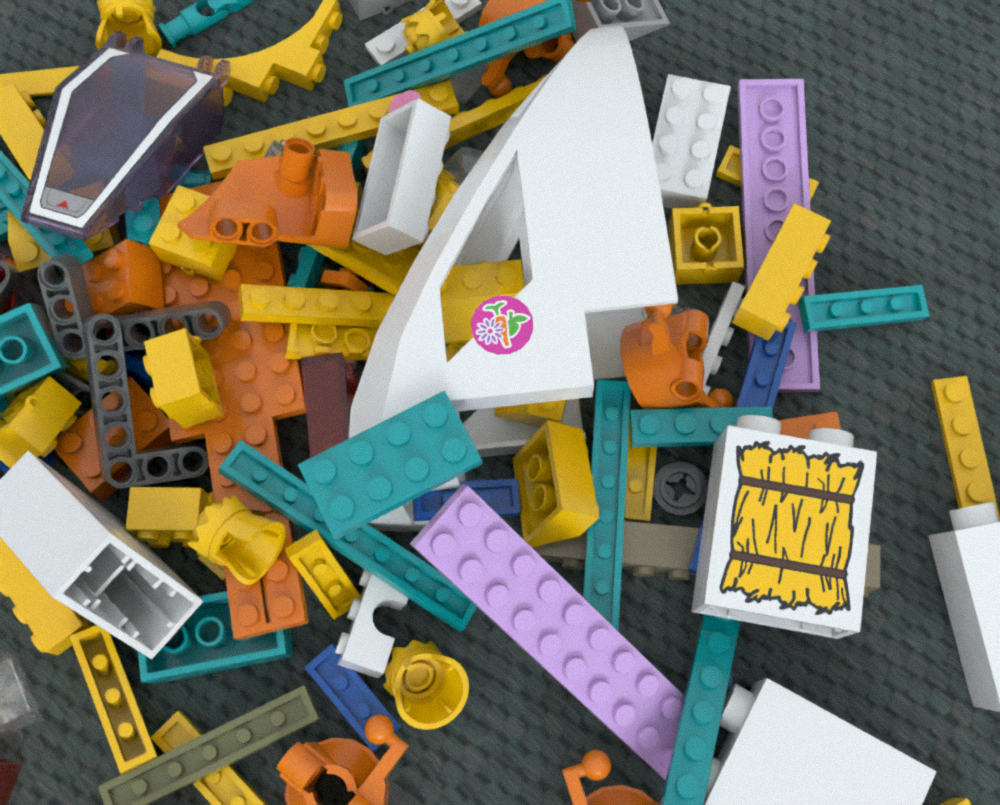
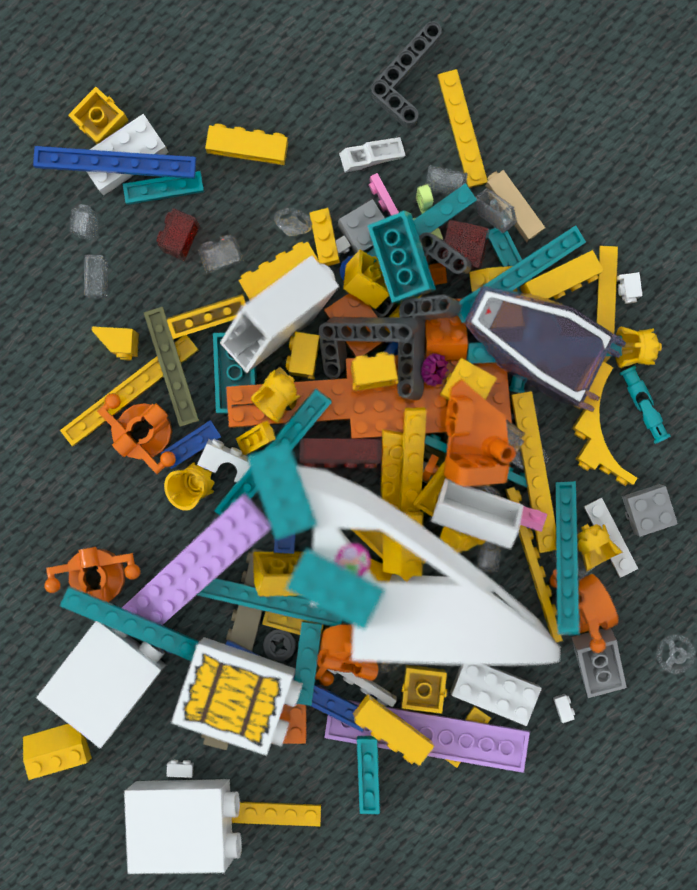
camera: 95 degrees right, 15 degrees up
(39, 48) = (629, 287): none -> white brick
(175, 289) = (429, 366): none -> magenta gear
(553, 338) = (335, 588): none -> teal brick
(692, 50) = (563, 707): none -> white piece
(932, 627) = (180, 769): none -> white piece

